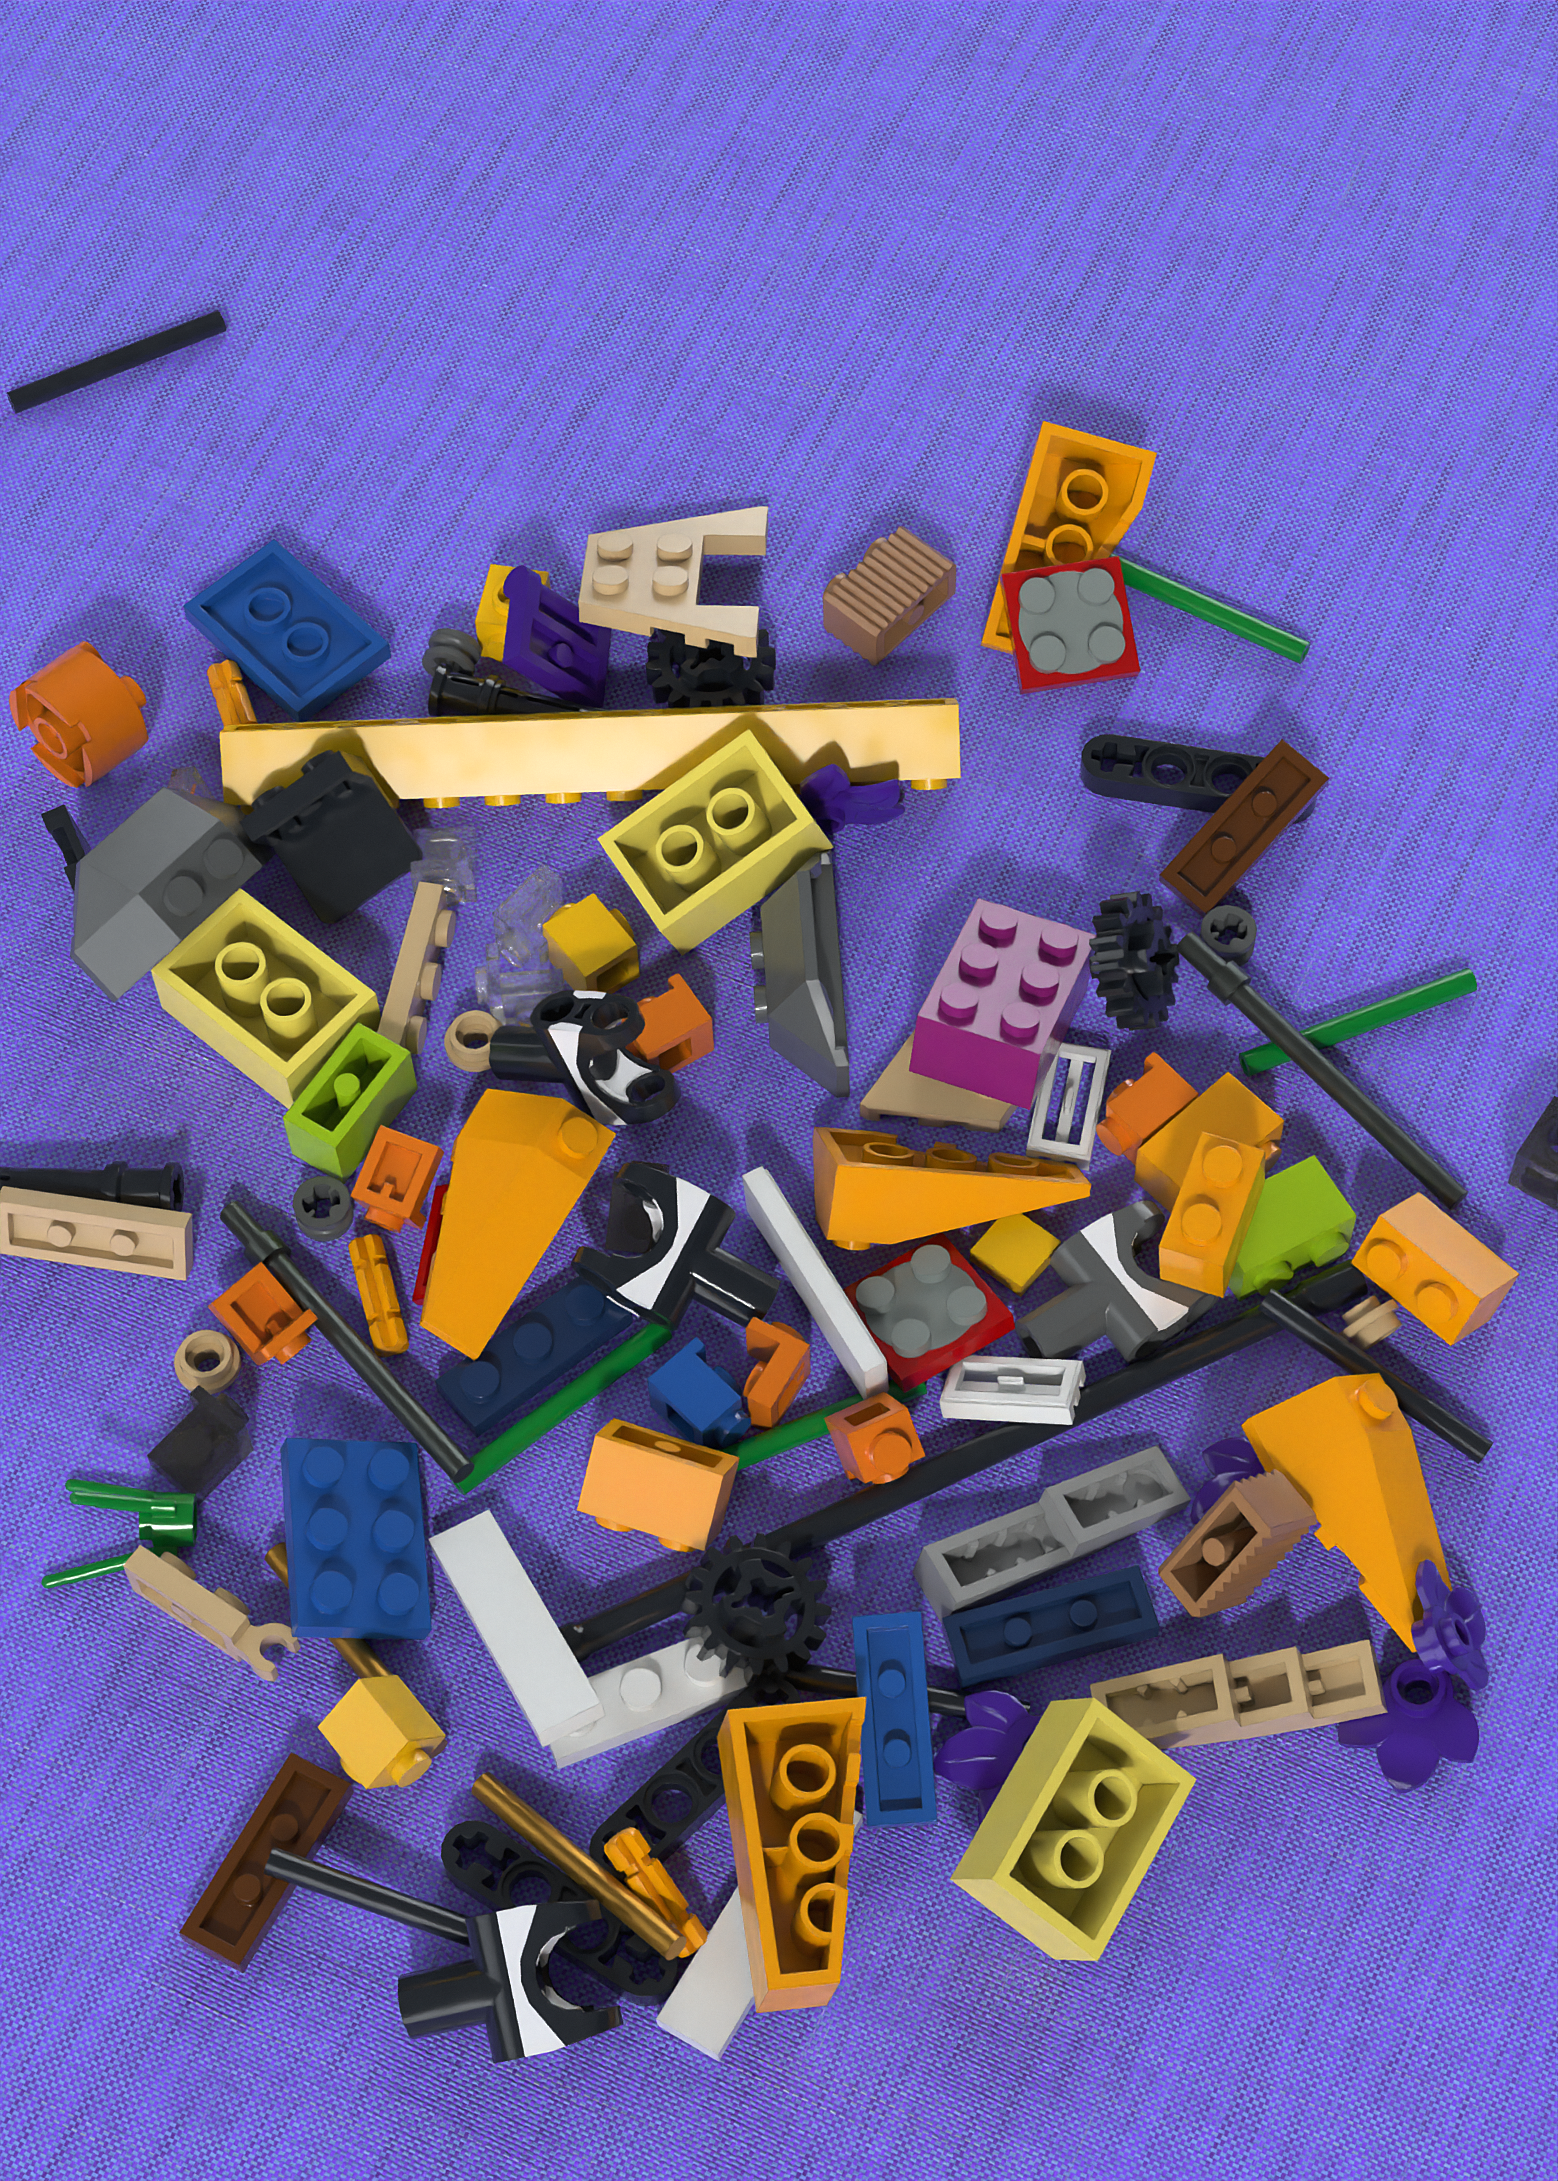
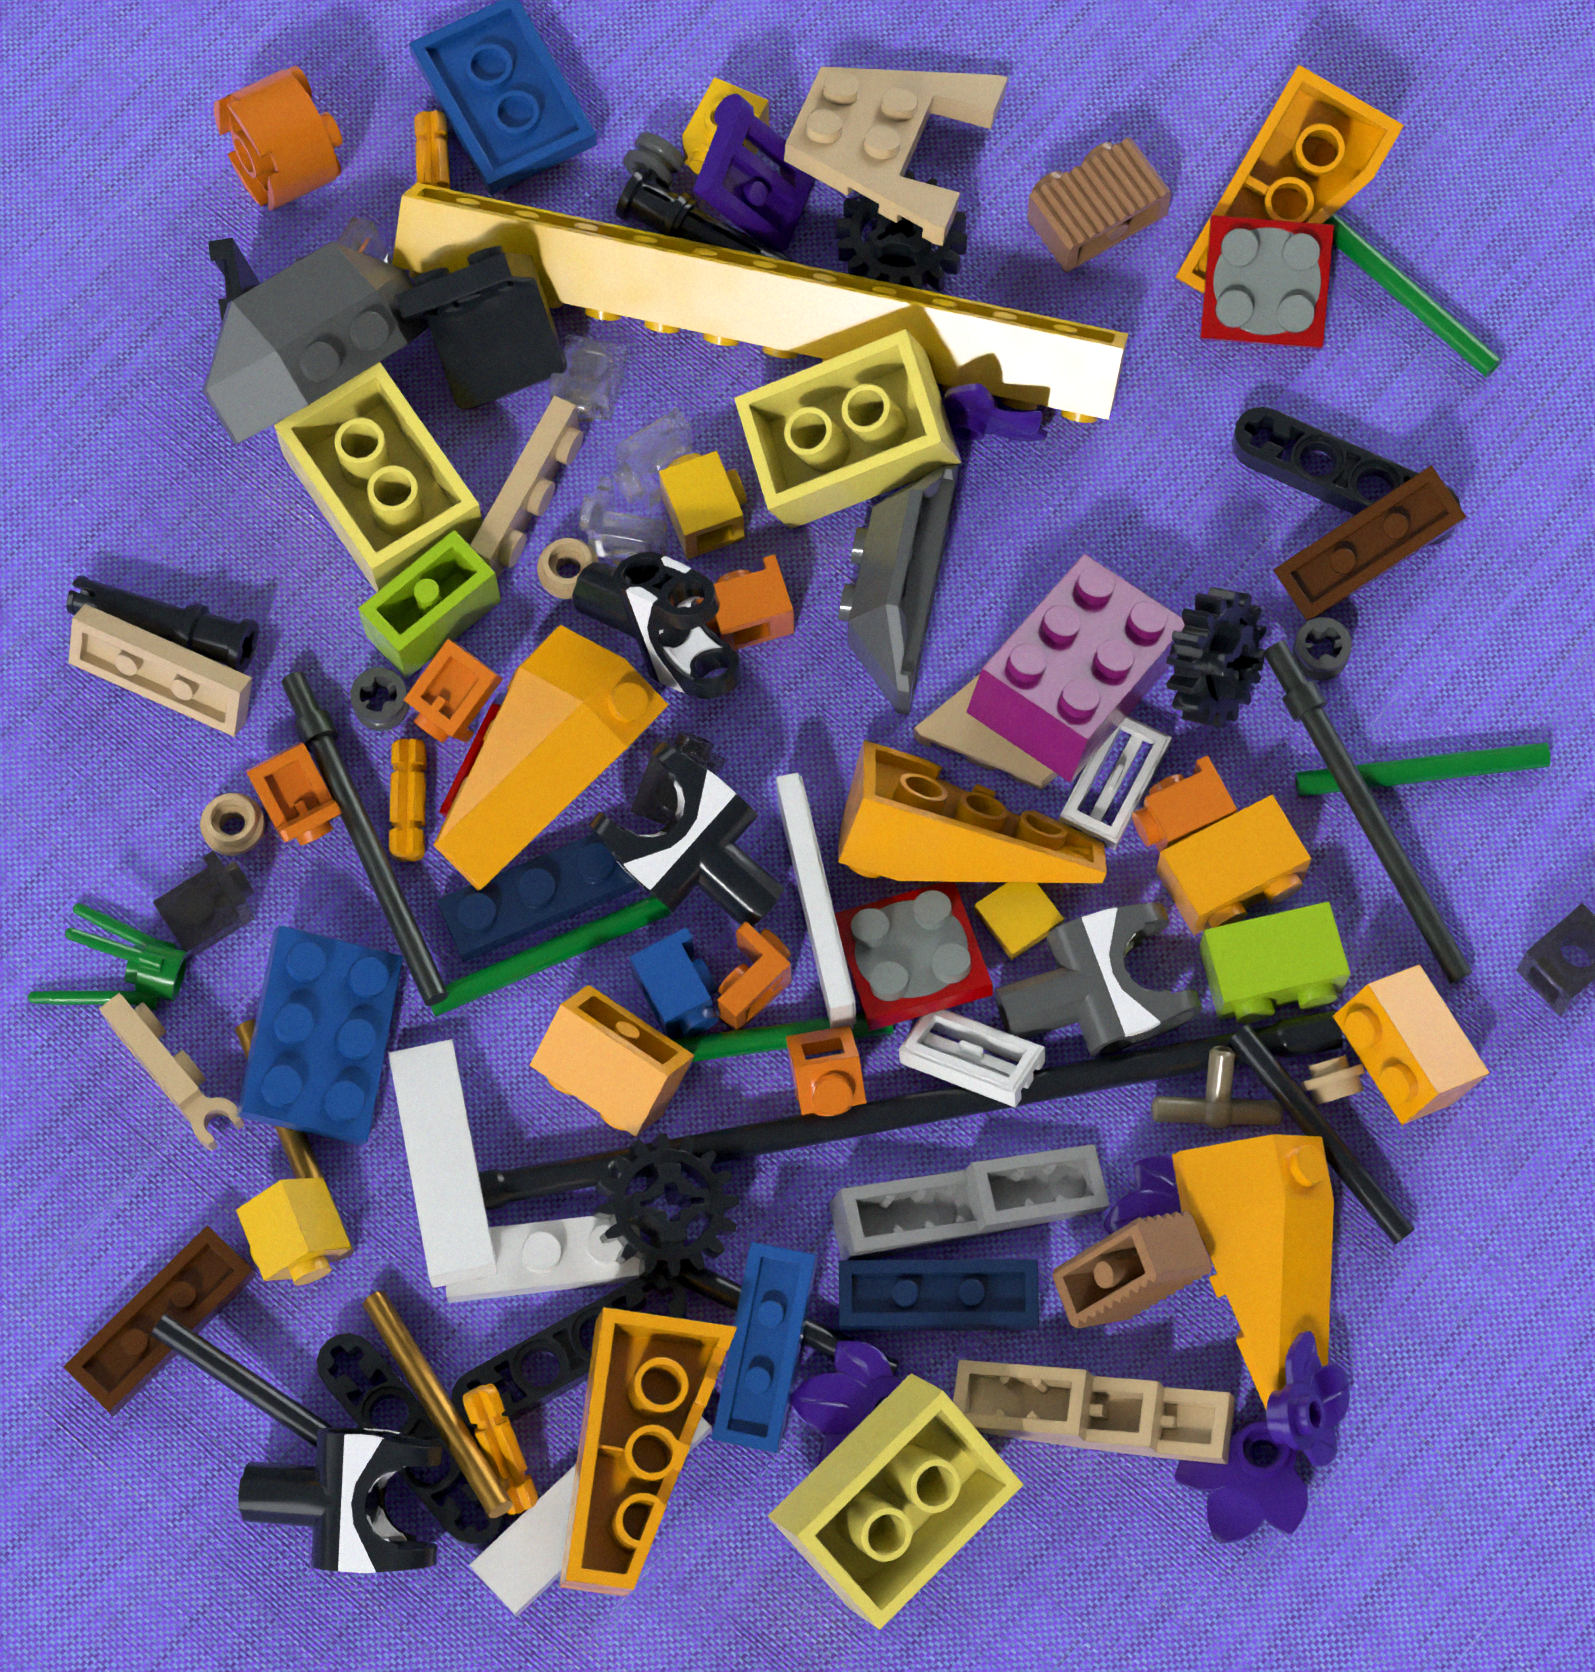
camera: 15 degrees right, 10 degrees up
(1212, 1214) = (1206, 941): light orange brick -> none
(1266, 1379) = (1218, 1107): none -> dark tan piece

